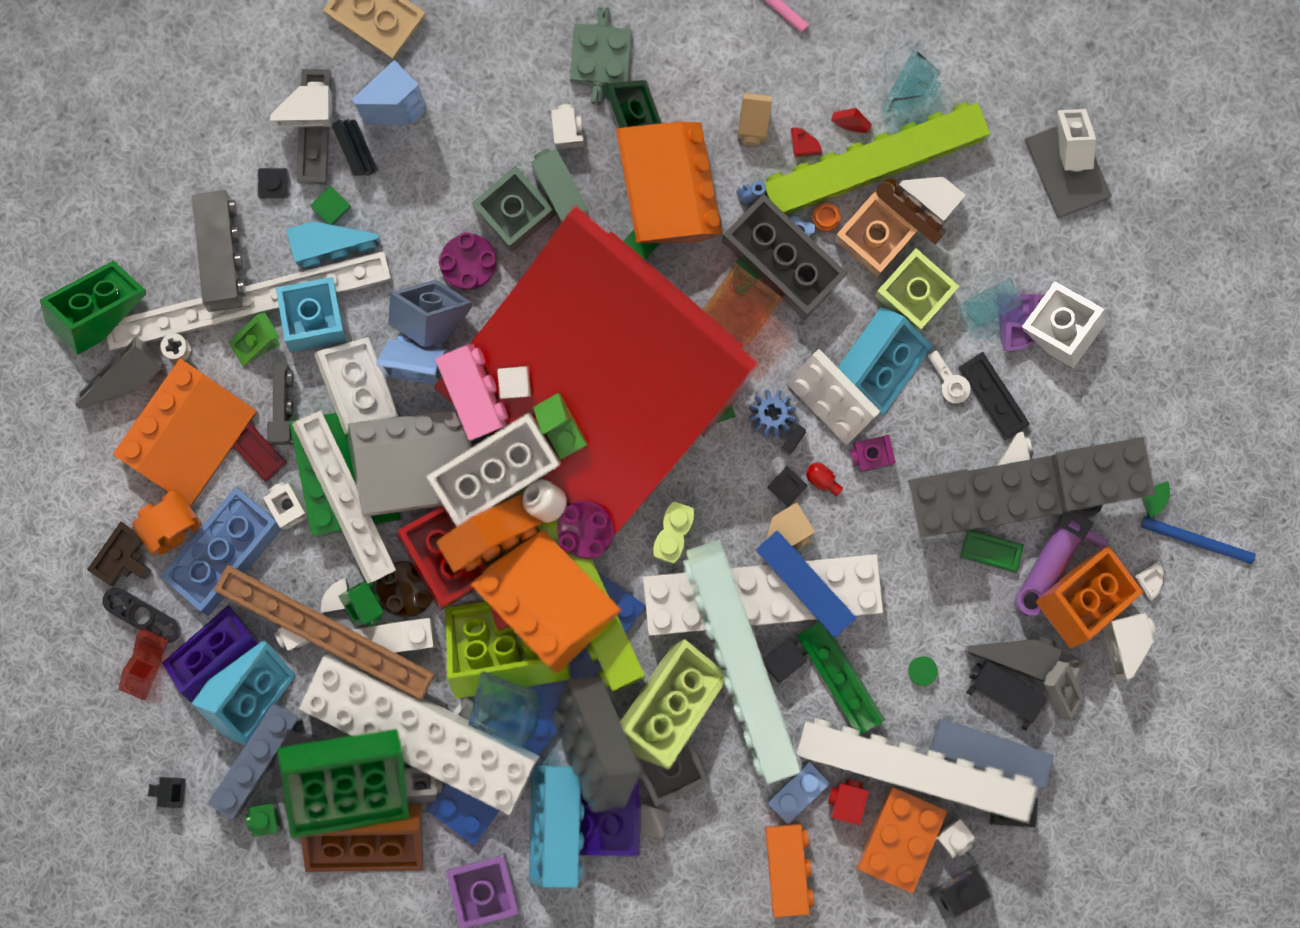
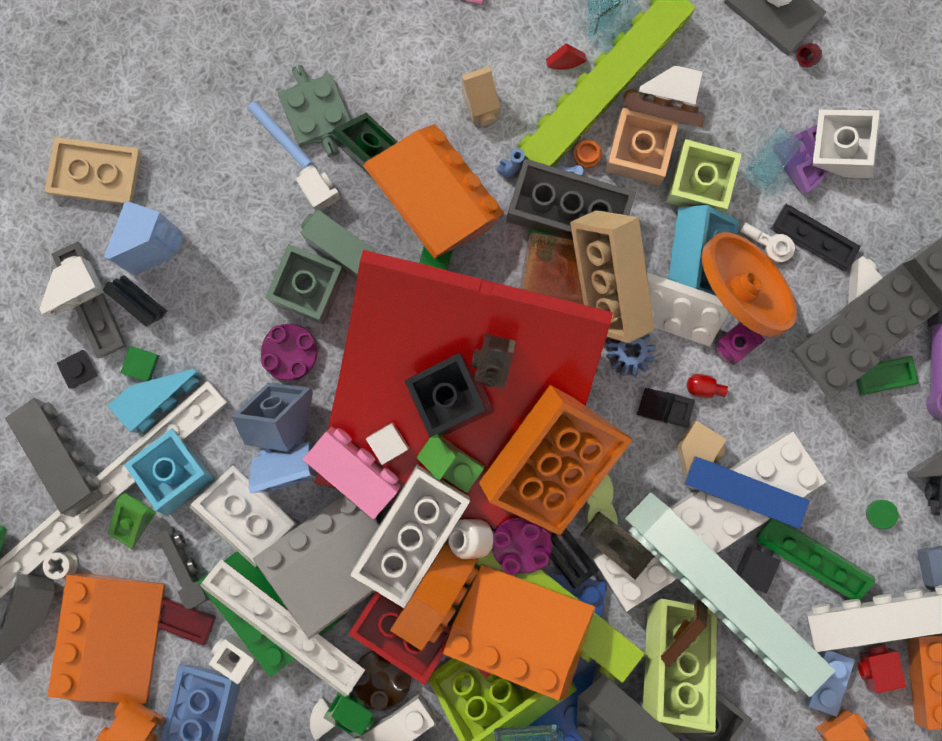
camera: 25 degrees left, 0 degrees up
(557, 61) = (279, 135): none -> light blue bar
(586, 367) = (448, 396): none -> black slope
(613, 571) = (561, 565): none -> black tile
(639, 354) = (493, 360): none -> clear smoke brick
(648, 469) = (554, 461): none -> orange slope
(668, 571) = (617, 545): none -> clear smoke slope
(687, 675) = (686, 633): none -> reddish brown tile
(770, 472) = (655, 405): none -> black plate
(786, 335) = (614, 271): none -> tan brick
(793, 440) = (662, 365): black tile -> none
(804, 143) = (534, 99): red tile -> none
(904, 404) = (749, 284): none -> orange dish
(1075, 222) = (806, 50): none -> dark red hinge

